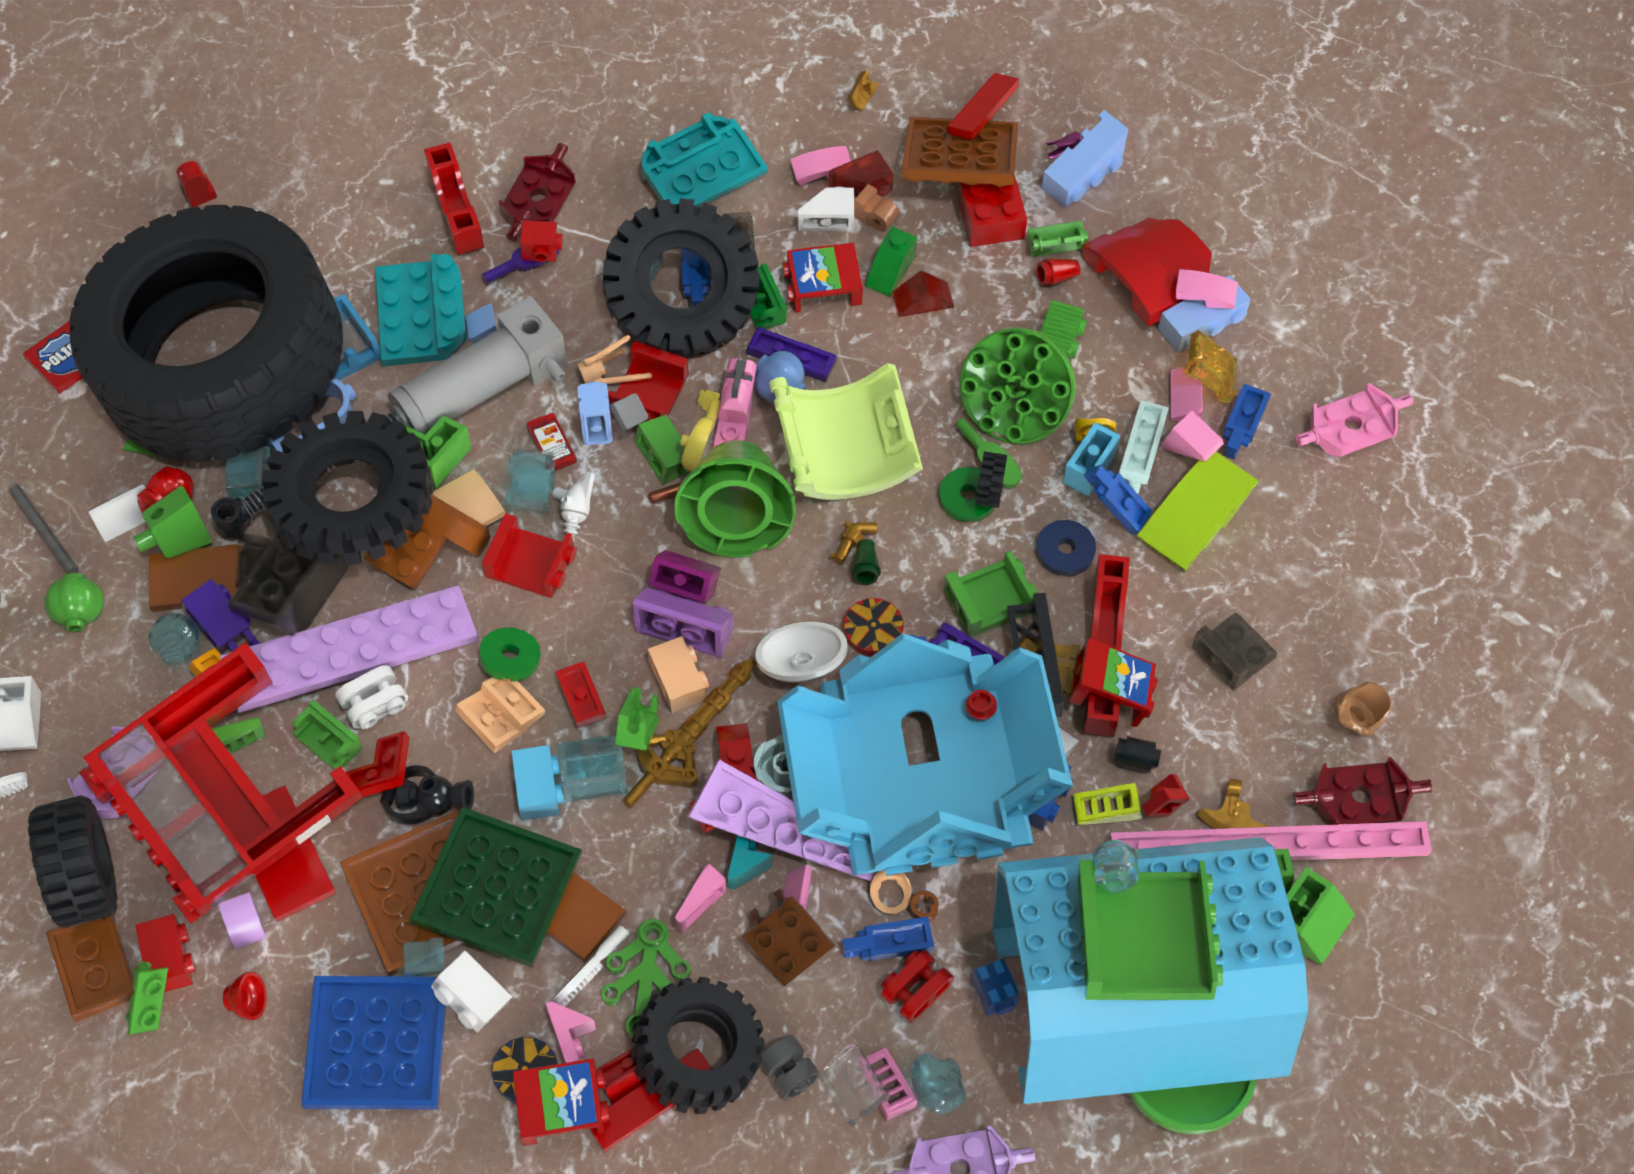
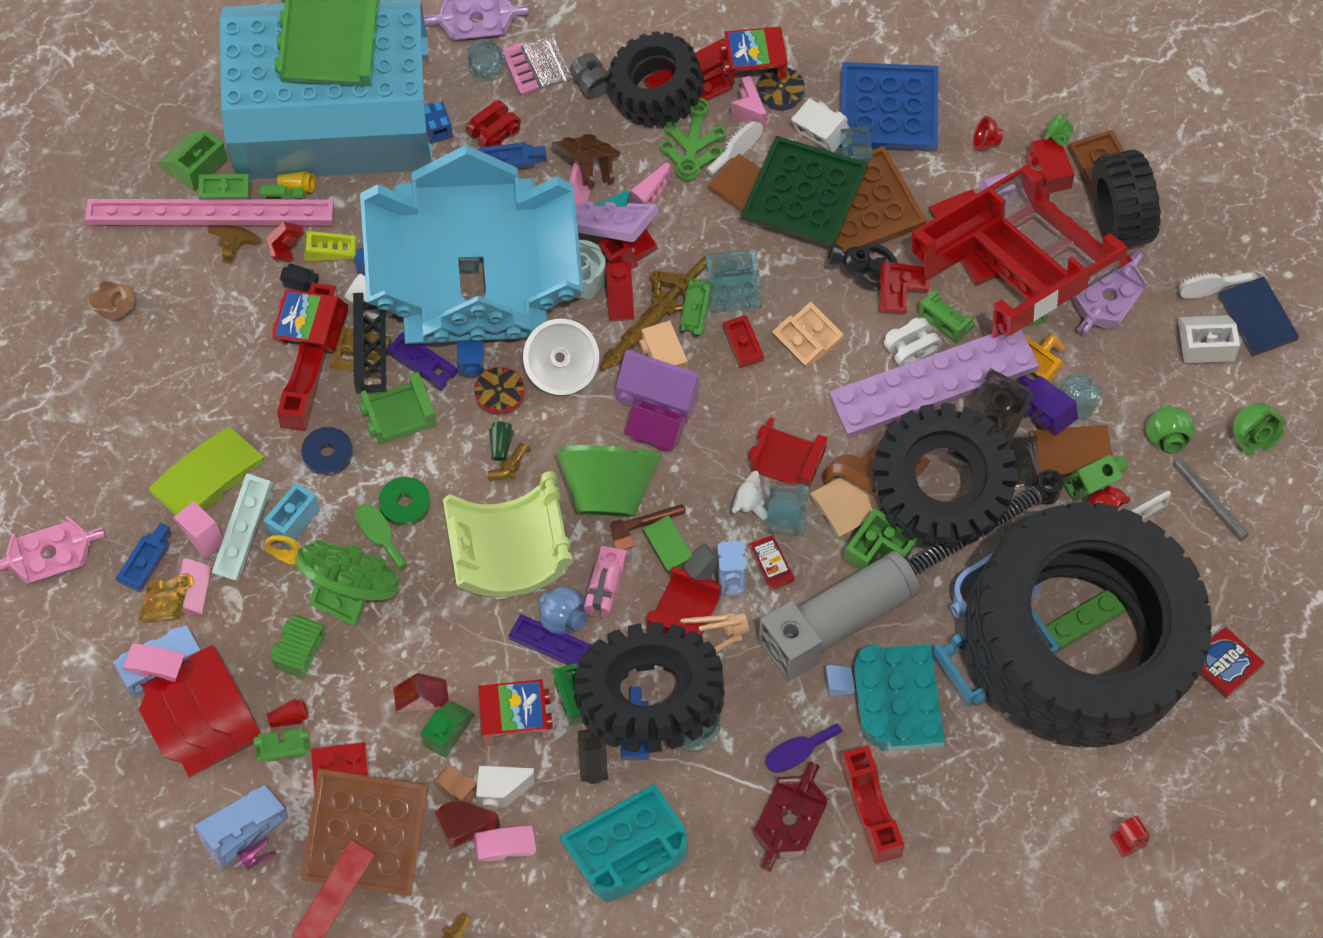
camera: 175 degrees left, 0 degrees up
(510, 640) = (792, 363): green tile -> none
(536, 782) = (777, 273): medium azure brick -> none
(540, 241) = (785, 747): red brick -> none
(697, 441) = (637, 524): light yellow piece -> none
(981, 705) = (420, 288): red plate -> none
(991, 479) = (383, 487): black tyre -> none
(1115, 866) = (343, 70): clear light blue head -> none
(1119, 498) = (278, 472): blue hinge -> none
(1233, 650) = (204, 355): clear smoke bracket -> none
(1383, 783) = (109, 241): dark red plate -> none

